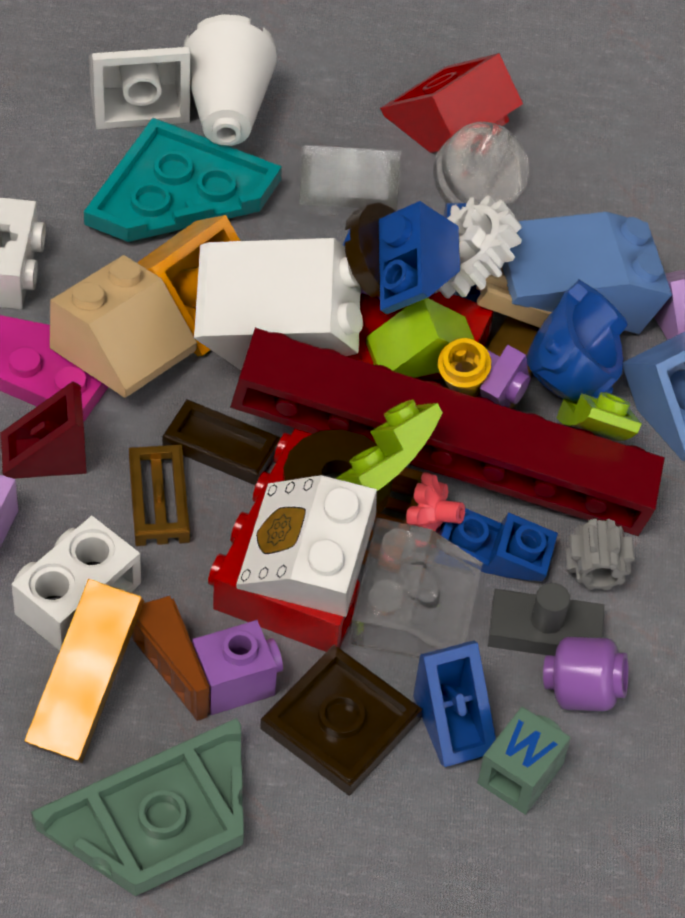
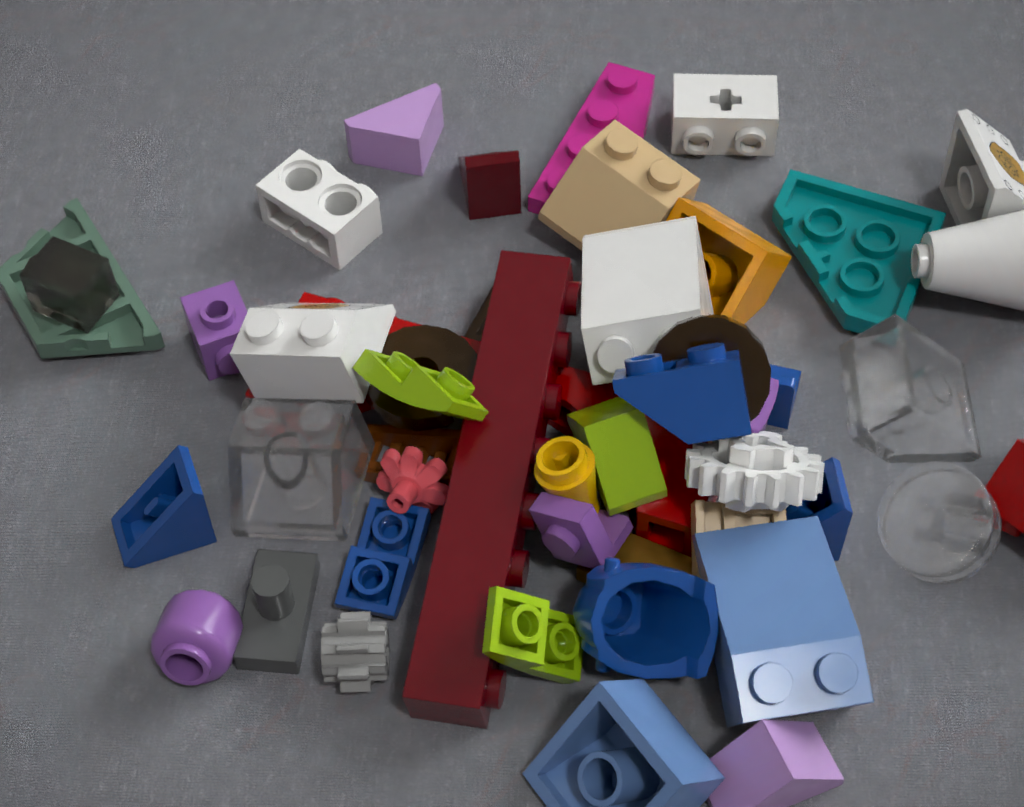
camera: 95 degrees right, 0 degrees up
(84, 670) = (215, 215): tile -> none
(161, 529) = (440, 276): pearl gold tile -> none
(168, 647) = (257, 272): dark orange slope -> none
(188, 786) = (69, 284): none -> clear smoke brick
(341, 719) = (164, 413): dark brown tile -> none
(524, 759) = (96, 576): sand green brick -> none

